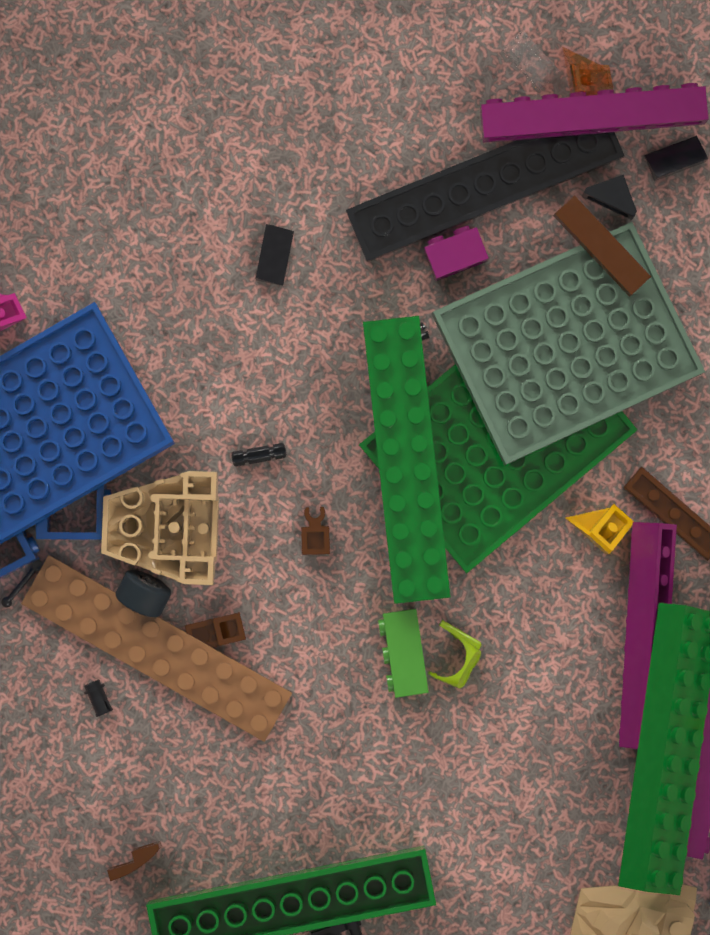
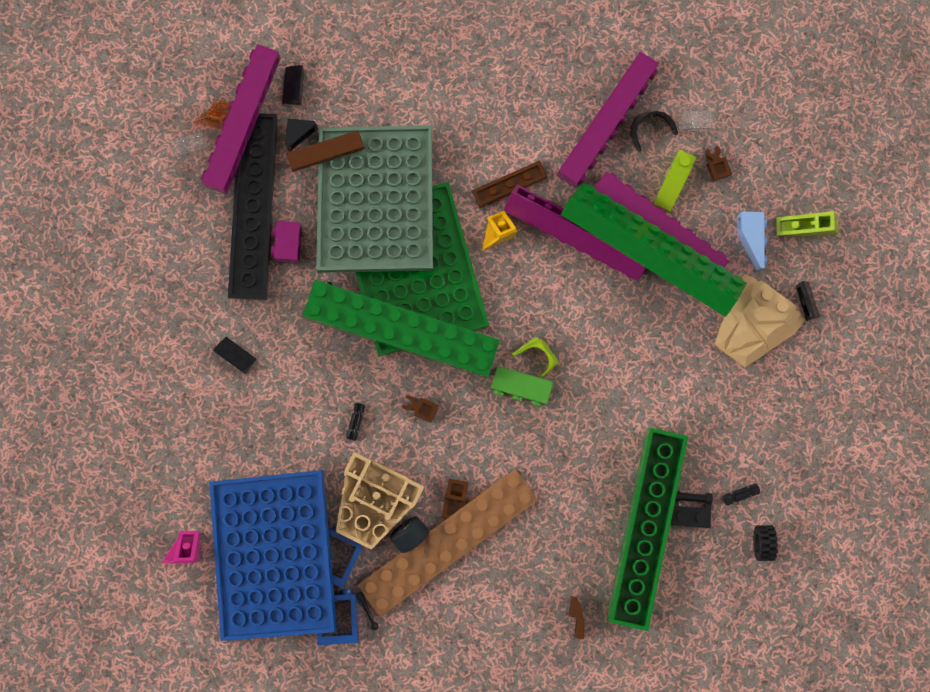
camera: 75 degrees left, 5 degrees down
(98, 697) = (462, 594): black pin -> none

